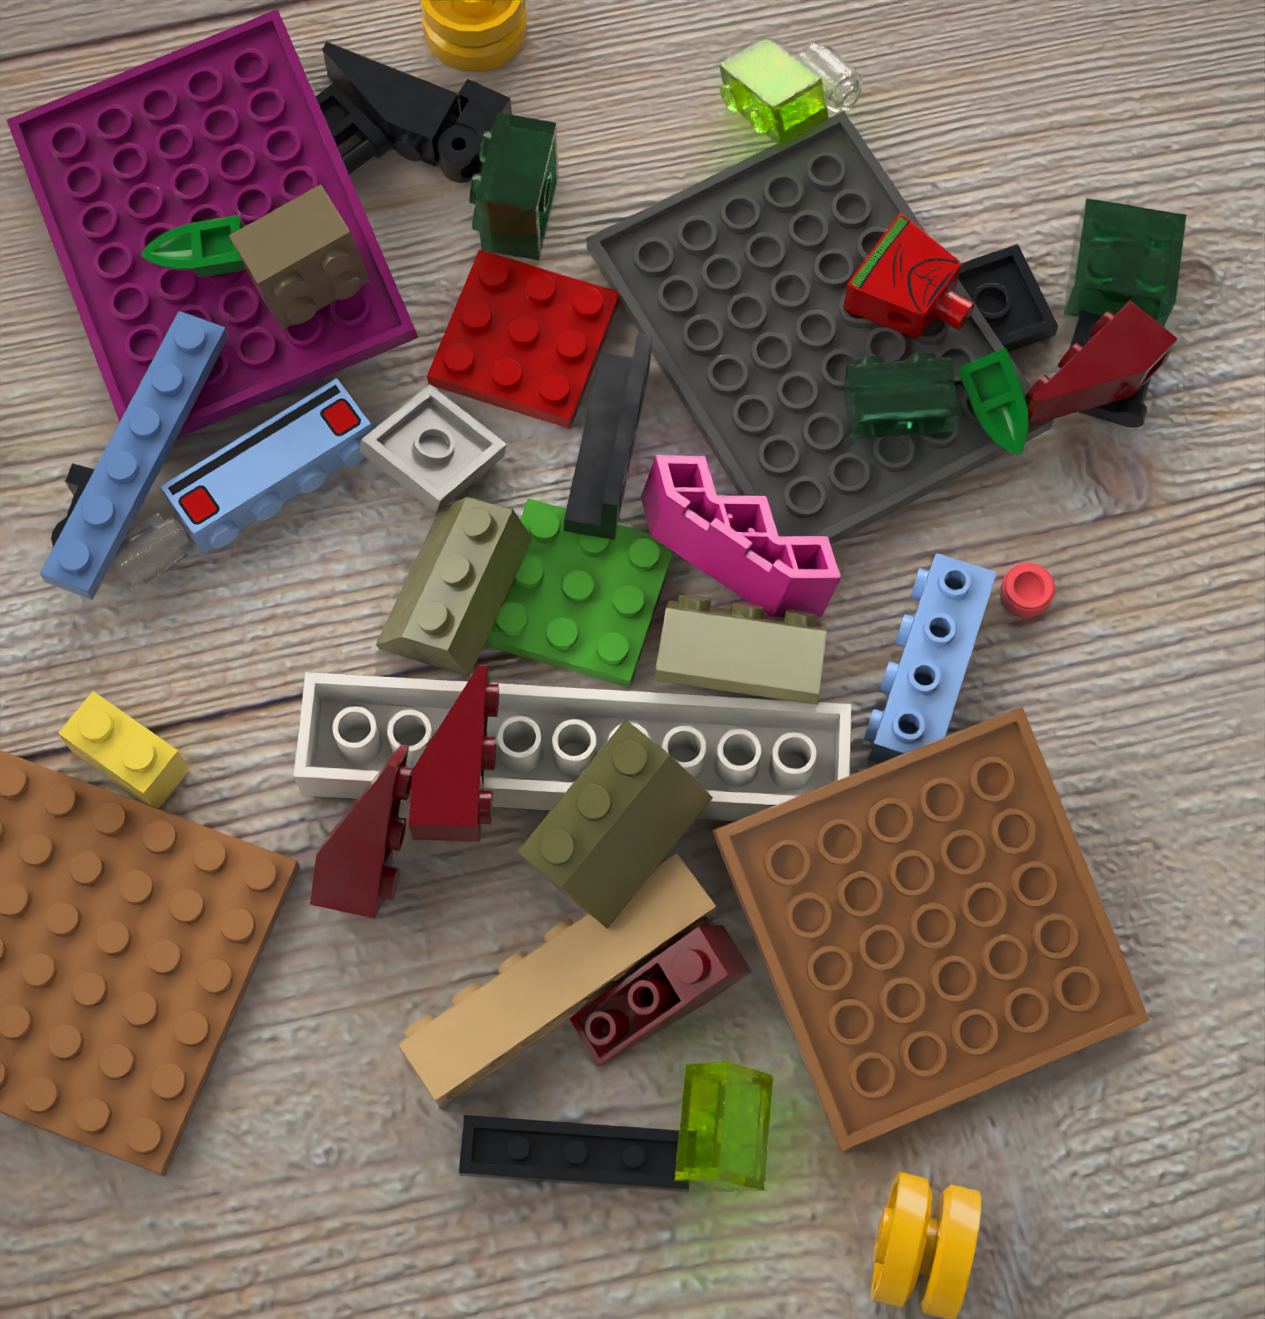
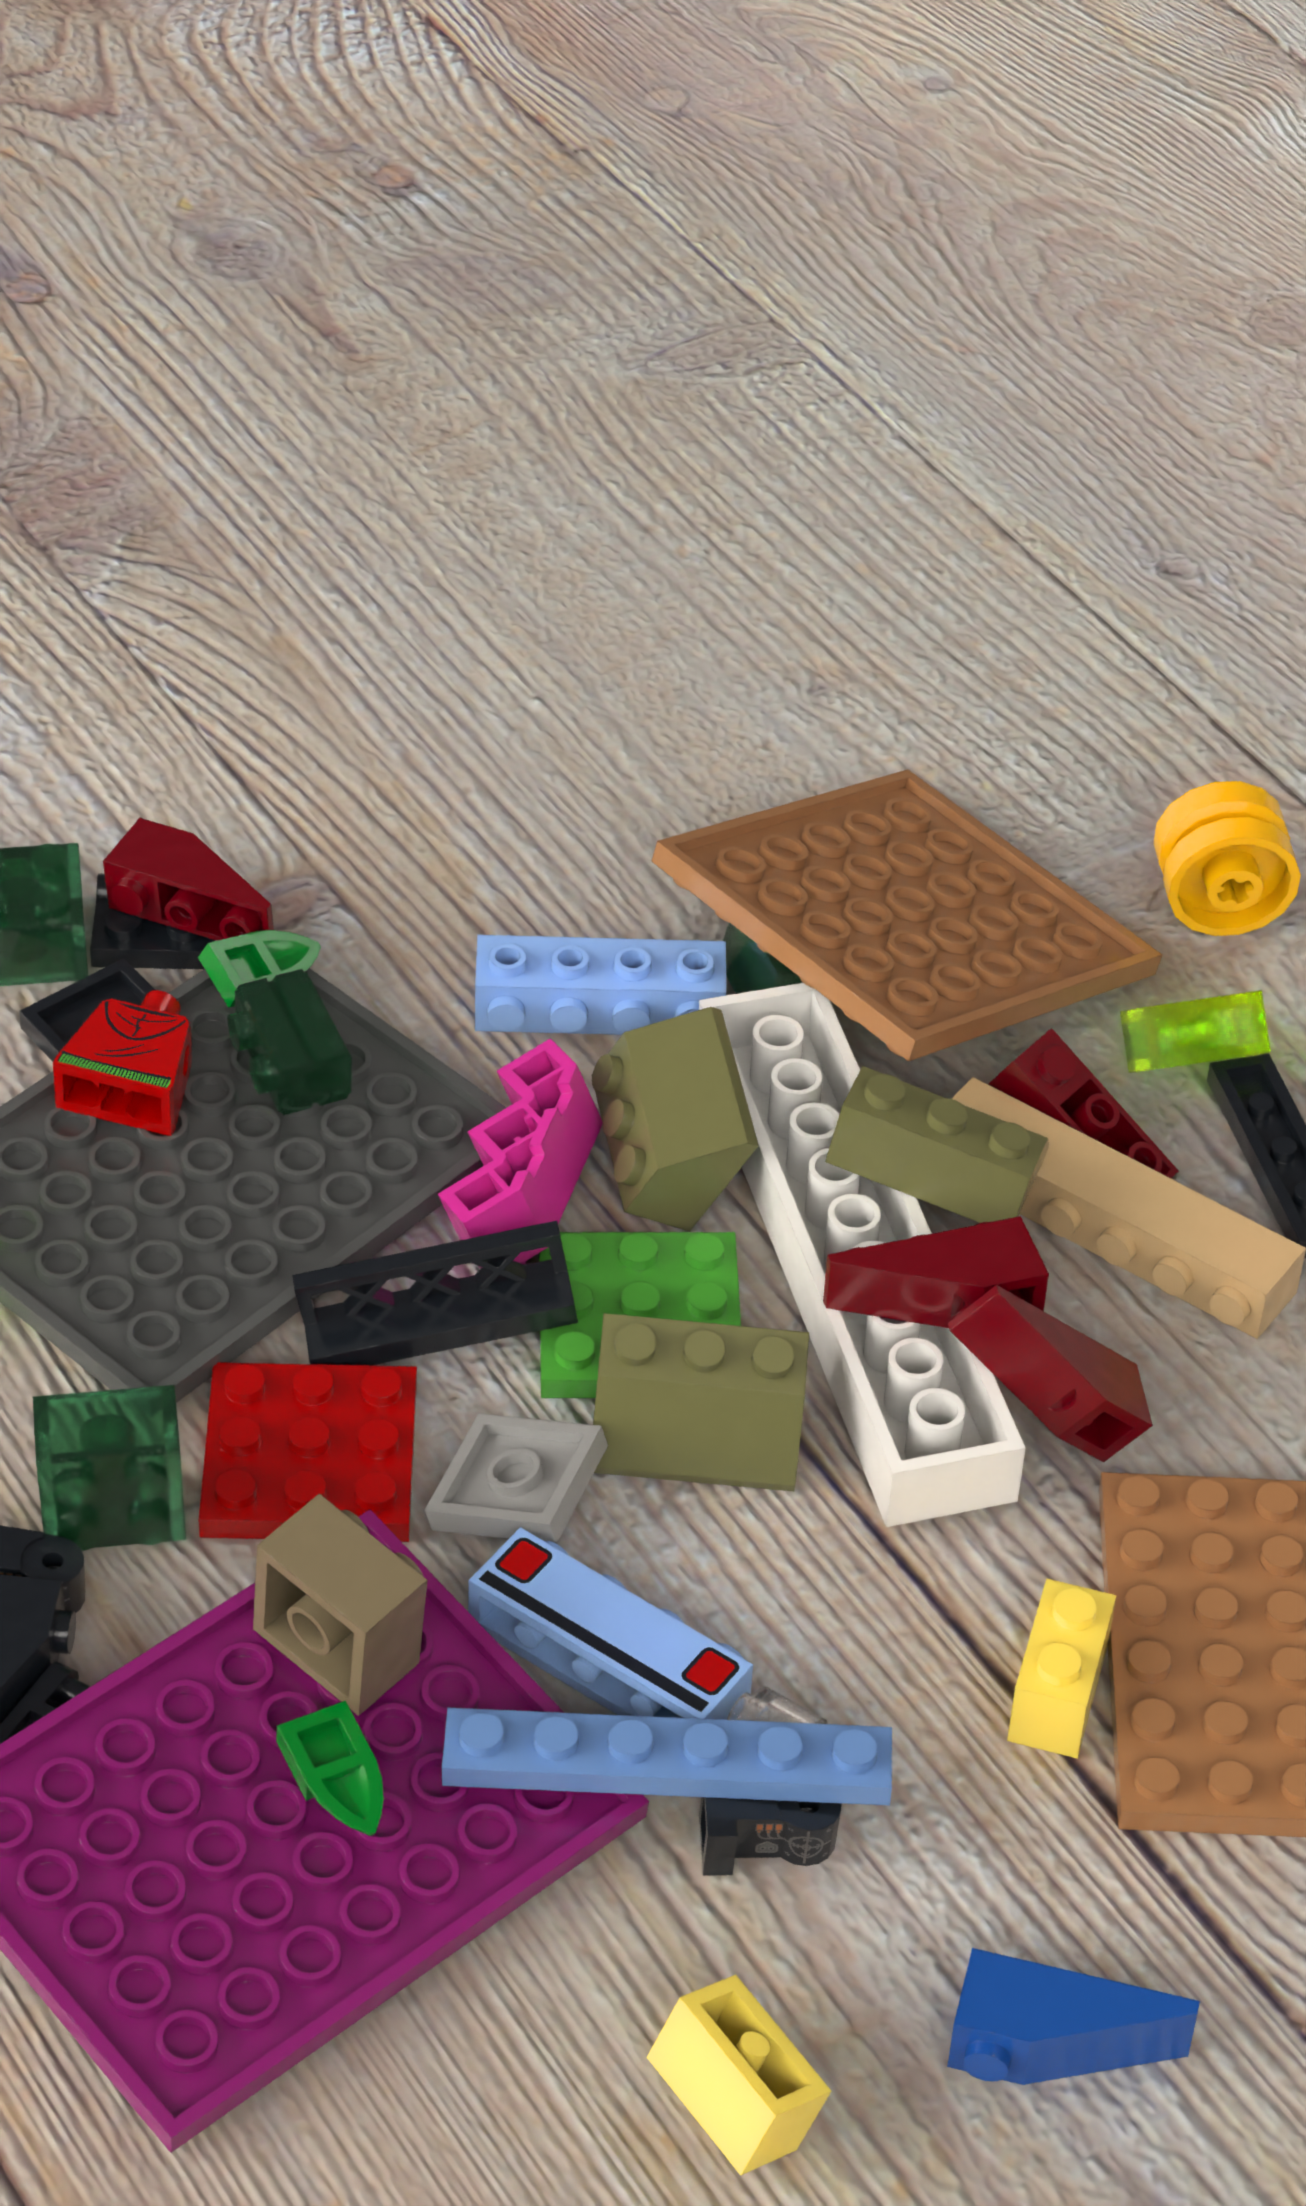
camera: 110 degrees left, 25 degrees down
(1027, 590) = (458, 940): coral tile -> none

